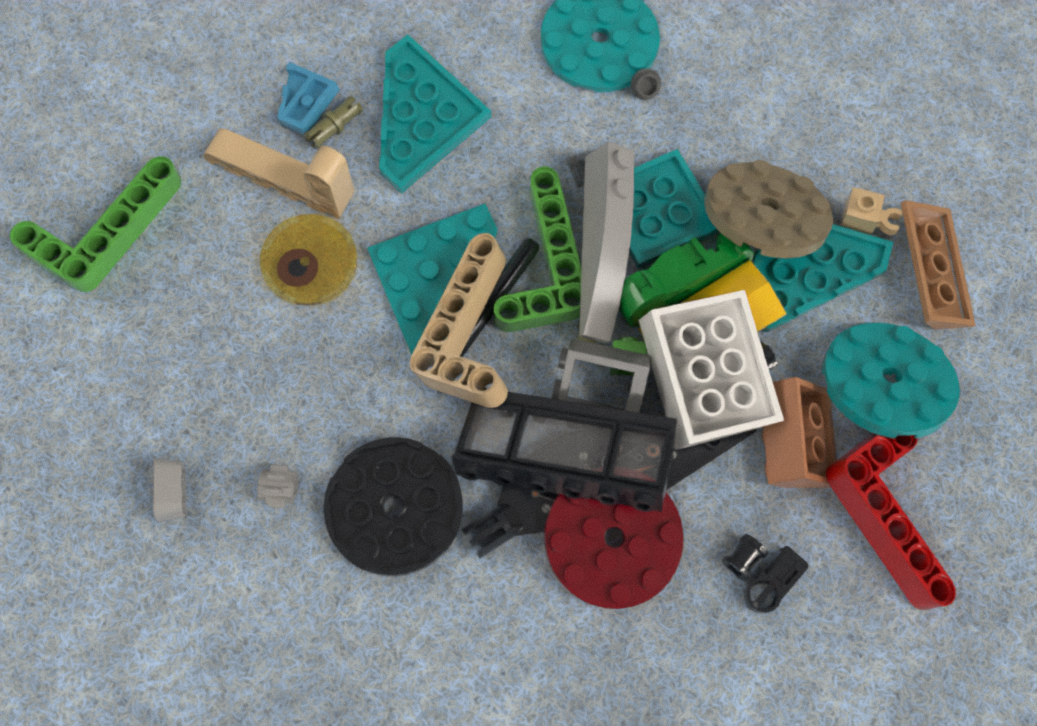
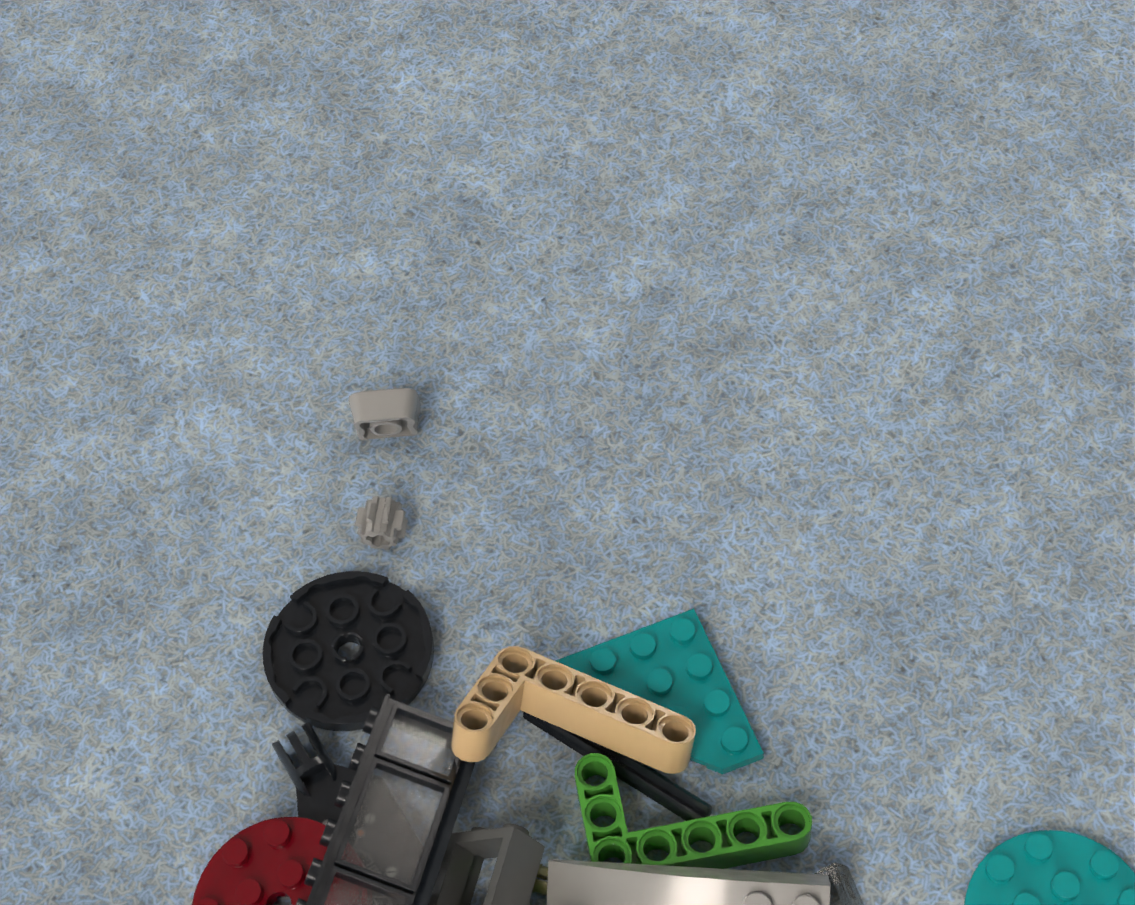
camera: 100 degrees right, 15 degrees down
(104, 231) = (671, 313): bright green beam -> none
(304, 98) = (912, 525): dark azure wing -> none
(308, 260) = (678, 545): clear yellow tile -> none
(321, 184) = (774, 529): tan beam -> none
(333, 122) = (879, 561): olive pin -> none
(422, 114) = (902, 675): teal plate -> none

